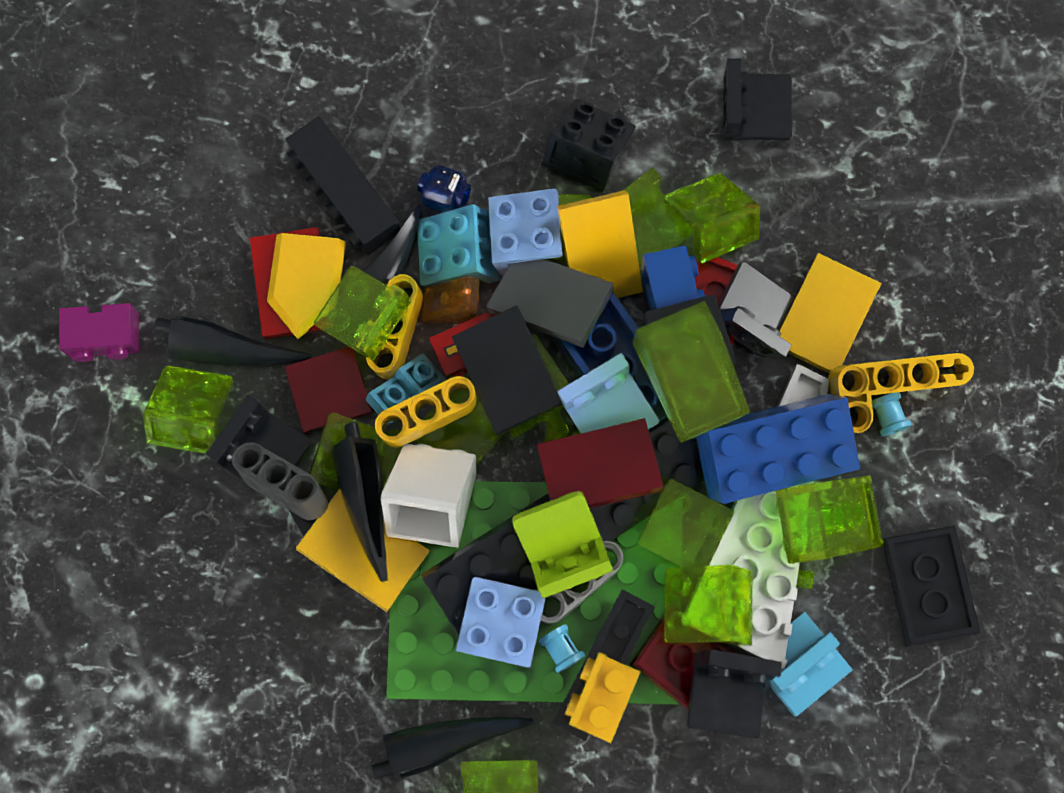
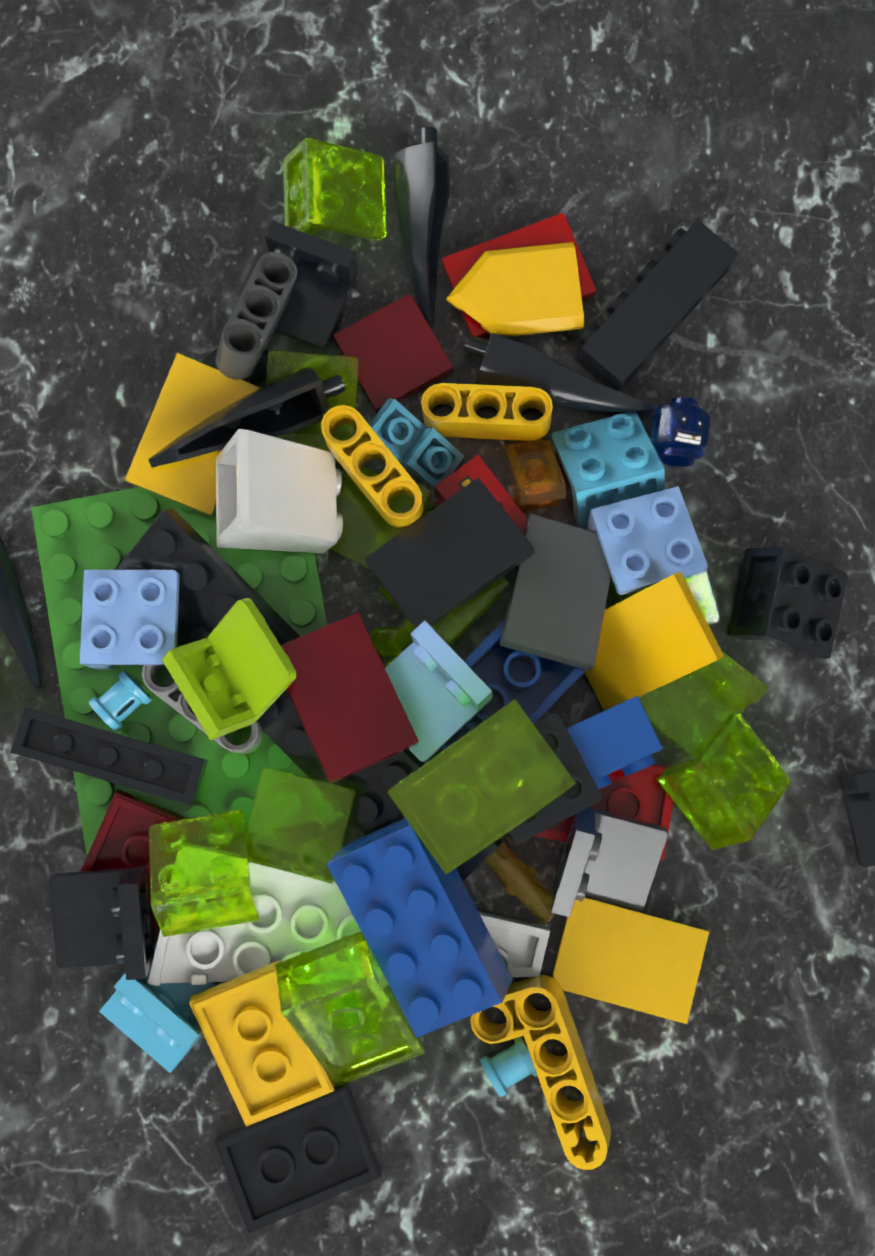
camera: 75 degrees right, 5 degrees up
(102, 333) = (407, 76): magenta brick -> none
(362, 312) = (487, 364): clear neon green bracket -> none
(603, 697) = (62, 762): yellow bracket -> none
(760, 376) = (522, 882): none -> clear yellow pin
(843, 592) = (258, 1047): none -> yellow tile

